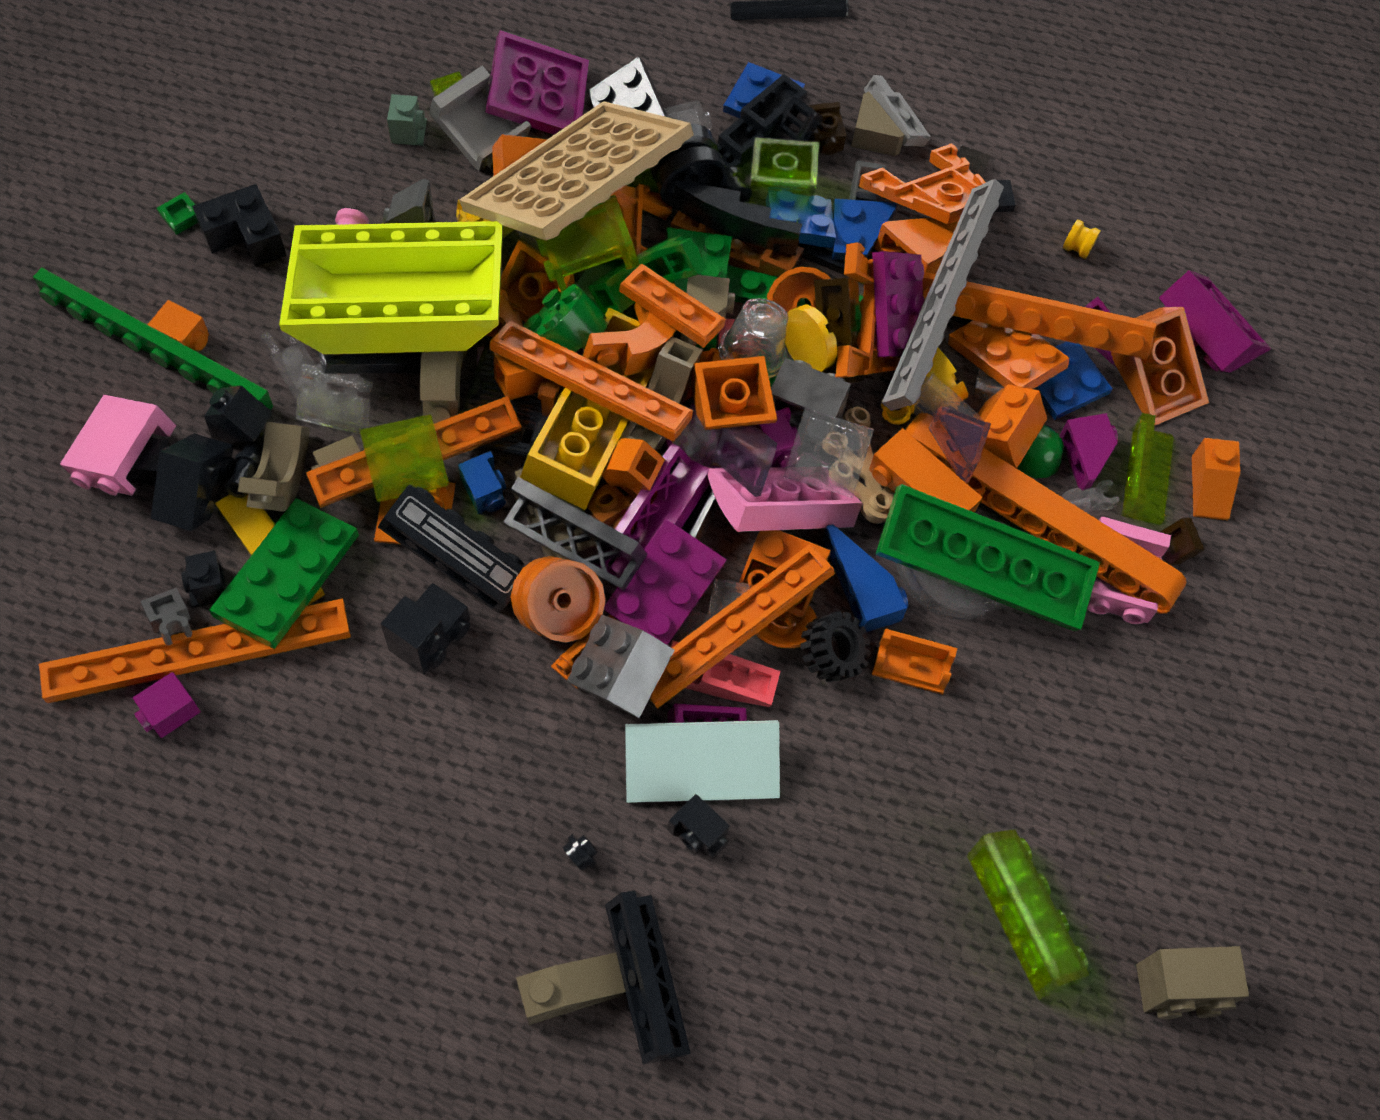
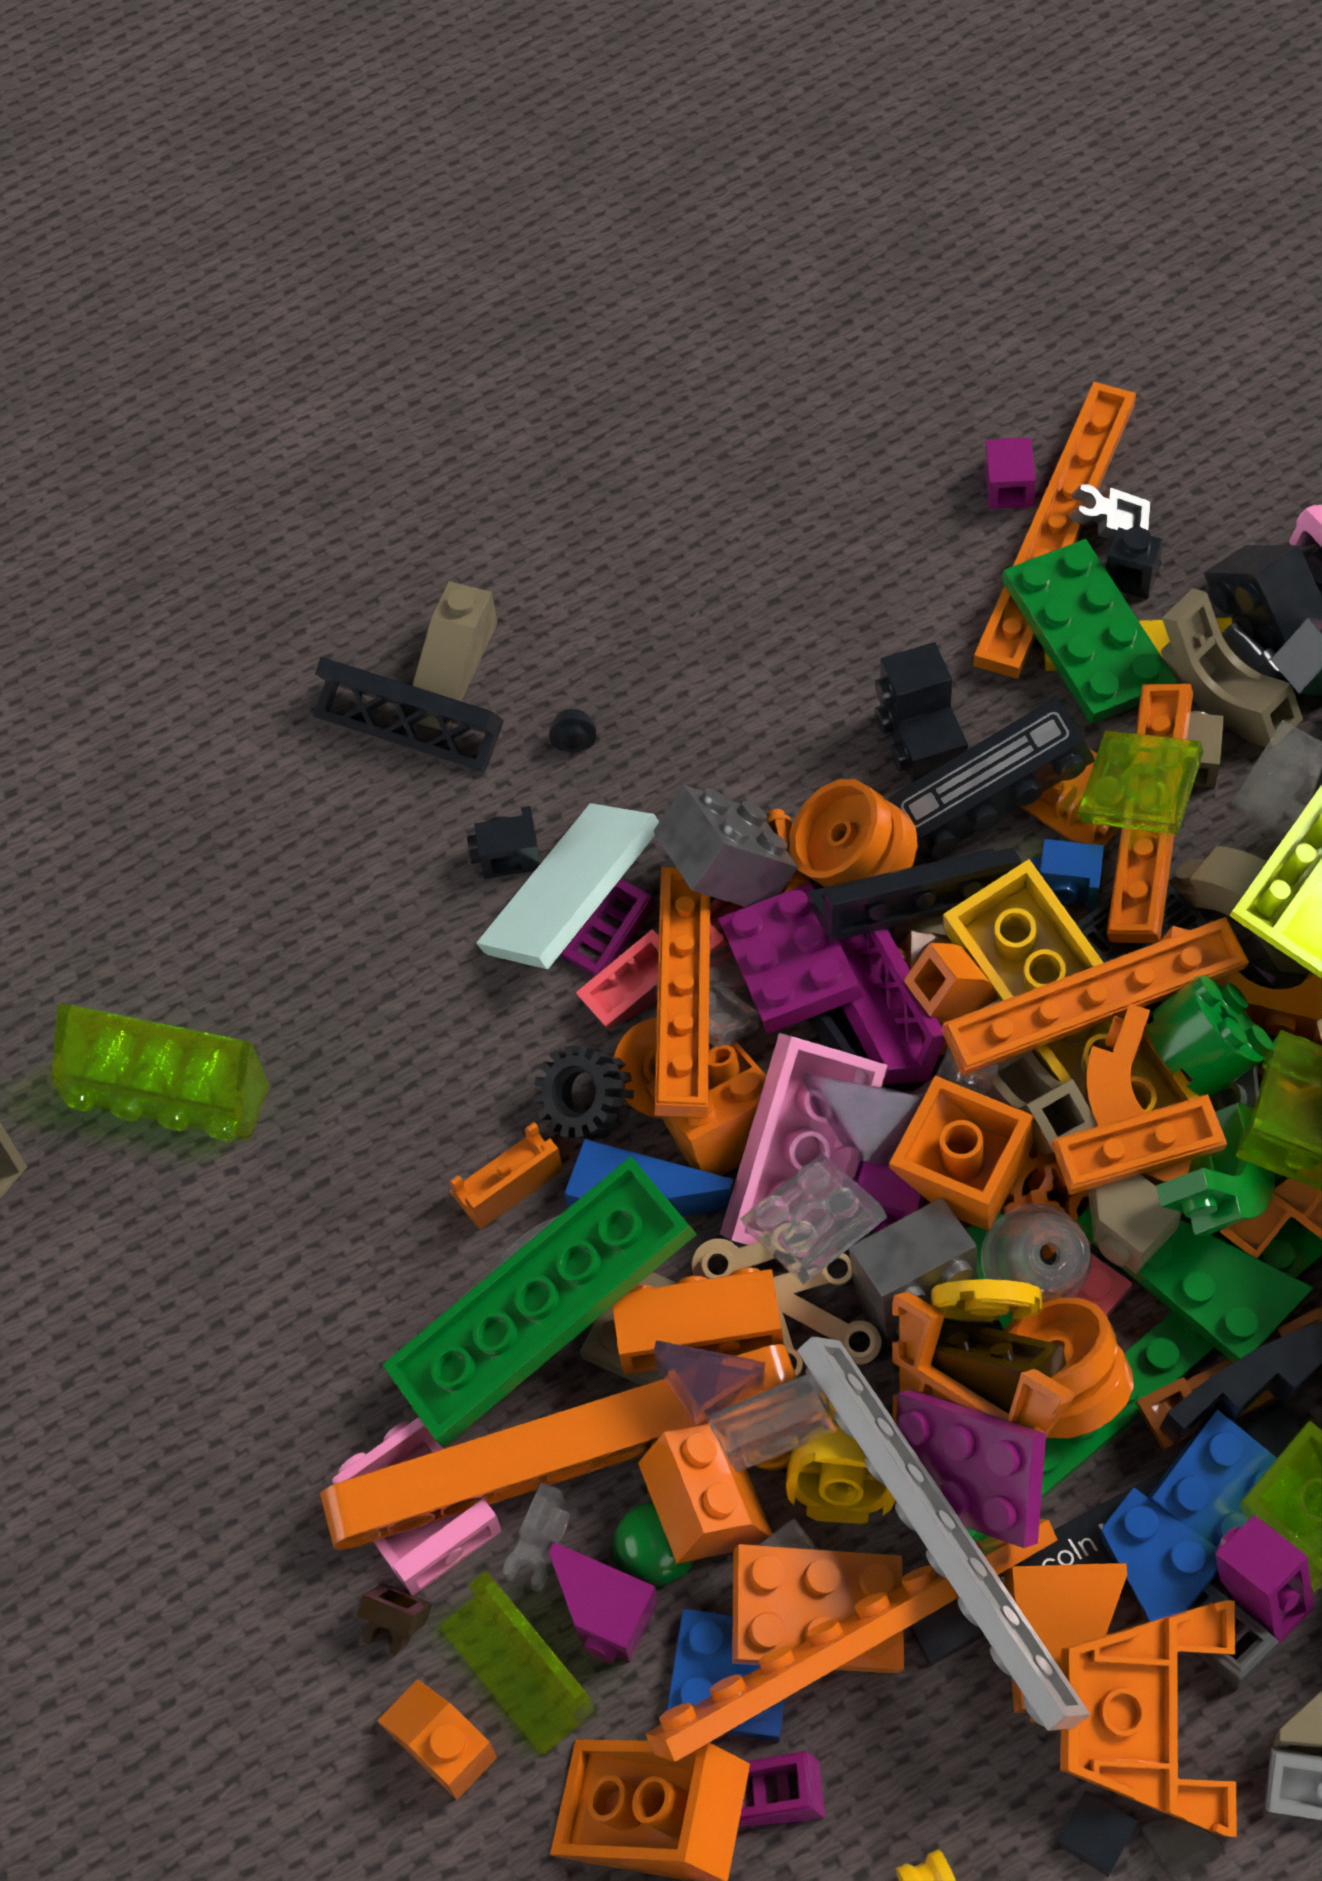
camera: 140 degrees right, 5 degrees down
(836, 171) = (1266, 1576): none -> magenta slope

